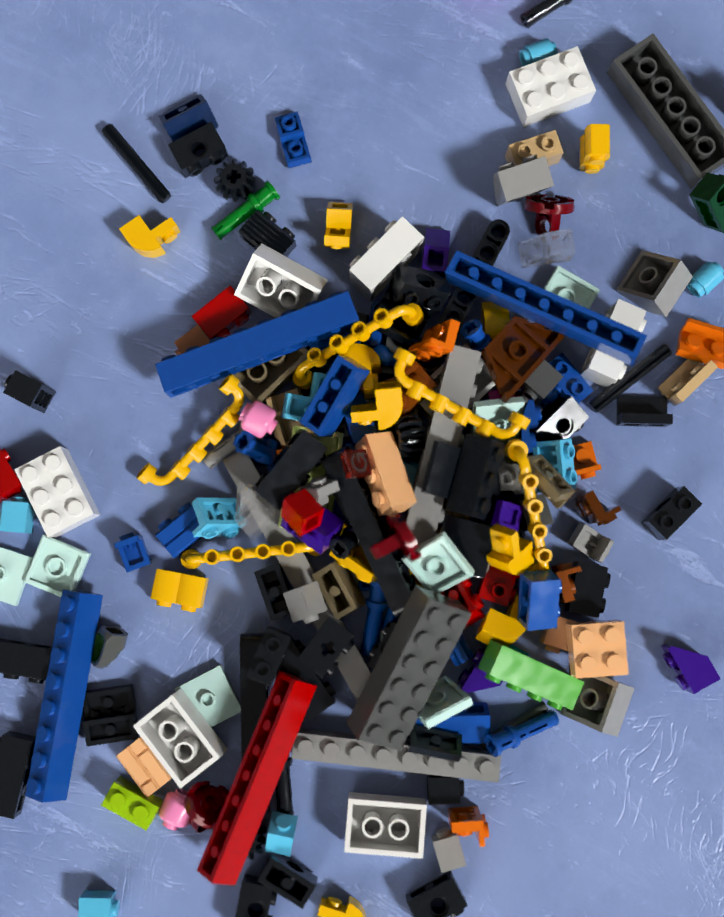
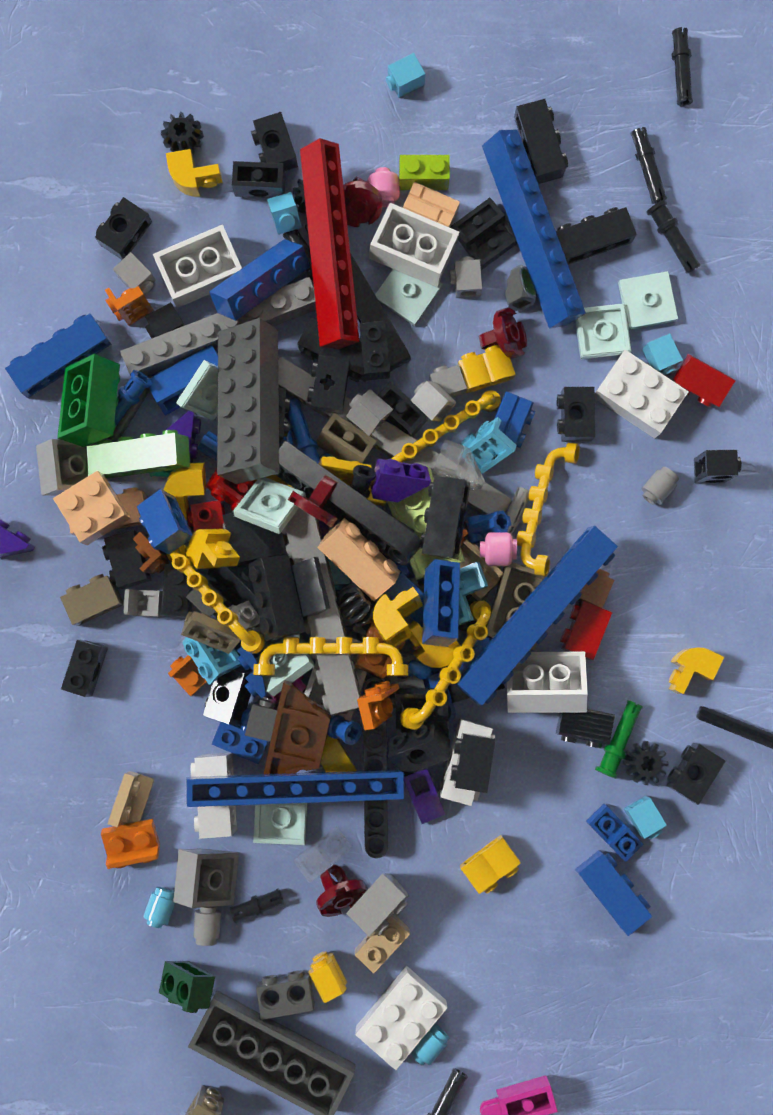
camera: 150 degrees right, 0 degrees up
(87, 403) = (660, 486): none -> light grey brick
(109, 512) = (584, 401): none -> black brick
(133, 551) = (544, 379): blue bracket -> none
(142, 608) = (506, 333): none -> dark red tile
(149, 682) = (466, 277): none -> light grey brick
(187, 117) = (723, 798): dark blue panel -> none
(221, 595) = (449, 380): none -> light grey brick
(243, 582) = (433, 400): none -> light grey brick
(260, 136) = (645, 818): none -> medium azure brick
(302, 512) = (413, 483): red brick -> none
(320, 92) = (614, 892): none -> blue brick
(321, 488) = (409, 510): light grey bracket -> none
(337, 780) = (259, 279): none -> blue brick
(338, 225) = (526, 771): yellow brick -> none
(356, 463) = (388, 550): clear red tile -> none
(381, 247) = (473, 762): none -> black brick
(410, 167) = (490, 865): none -> yellow brick
(435, 743) = (191, 353): black plate -> none
(507, 514) = (230, 580): dark purple plate -> none
(550, 750) = (89, 401): none -> green brick
(556, 811) = (49, 359): none -> blue brick
(560, 534) = (175, 592): none -> black brick
(591, 508) = (160, 631): reddish brown bracket -> none
(623, 238) = (256, 905): none -> black pin
(630, 378) = (179, 783): black axle -> none
(636, 570) = (91, 600): none -> dark tan brick
(637, 147) = (287, 1002): none -> dark grey brick
(643, 411) = (156, 750): black panel -> none
(674, 241) = (207, 926): none -> light grey brick

